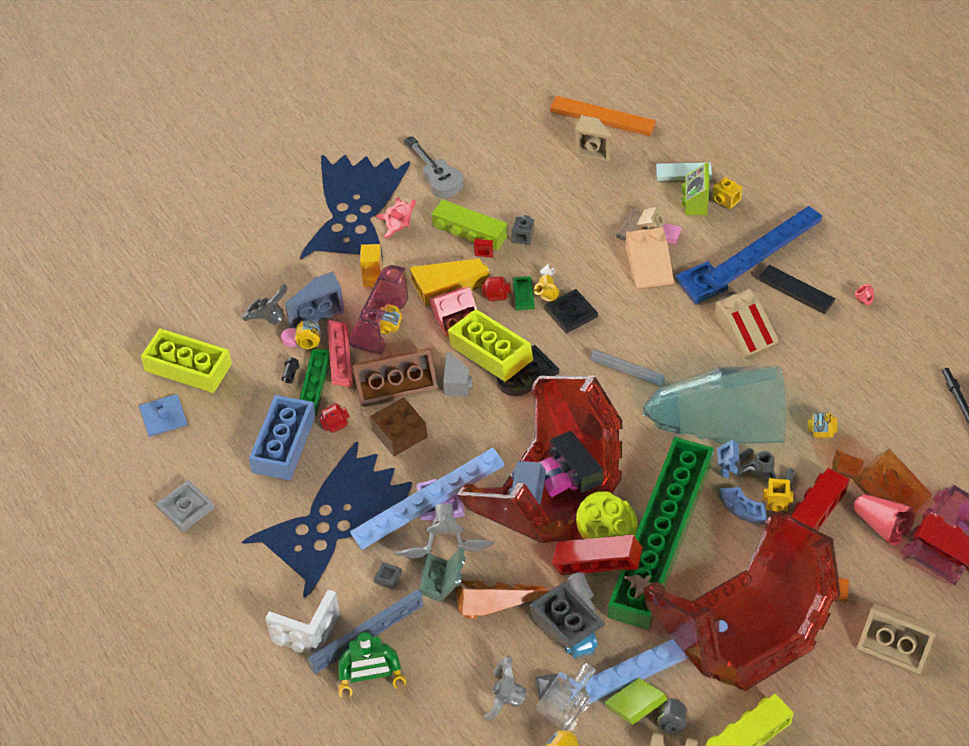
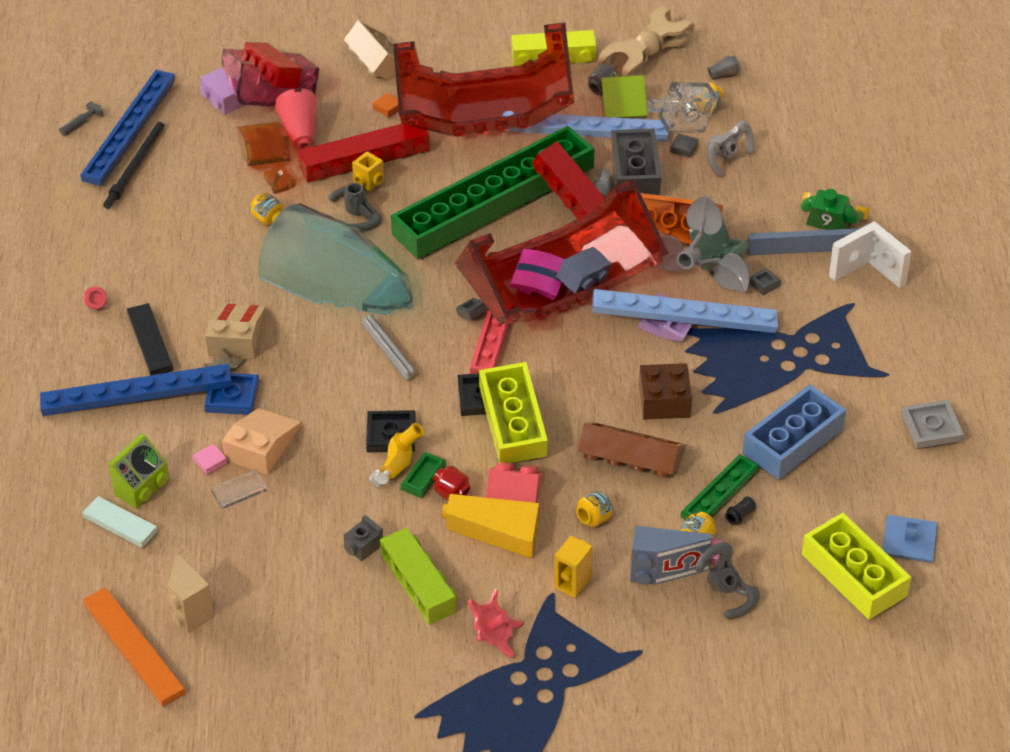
camera: 150 degrees left, 5 degrees down
(334, 418) = (725, 432): red head -> none
(339, 353) = (676, 497): coral tile -> none
(388, 289) = (608, 512): clear pink windscreen -> none
(442, 178) = (397, 658): light grey piece -> none
(456, 377) = (570, 413): light grey slope -> none
(483, 248) = (427, 538): red tile -> none
(576, 461) = (527, 257): black brick -> none
(605, 516) = (535, 220): neon yellow tile -> none
(639, 583) = (550, 139): dark tan piece -> none
(652, 218) = (220, 468): tan brick -> none
(727, 192) = (105, 451): yellow brick -> none
(727, 456) = (376, 224): medium blue plate -> none
(743, 507) = (400, 190): medium blue tile -> none

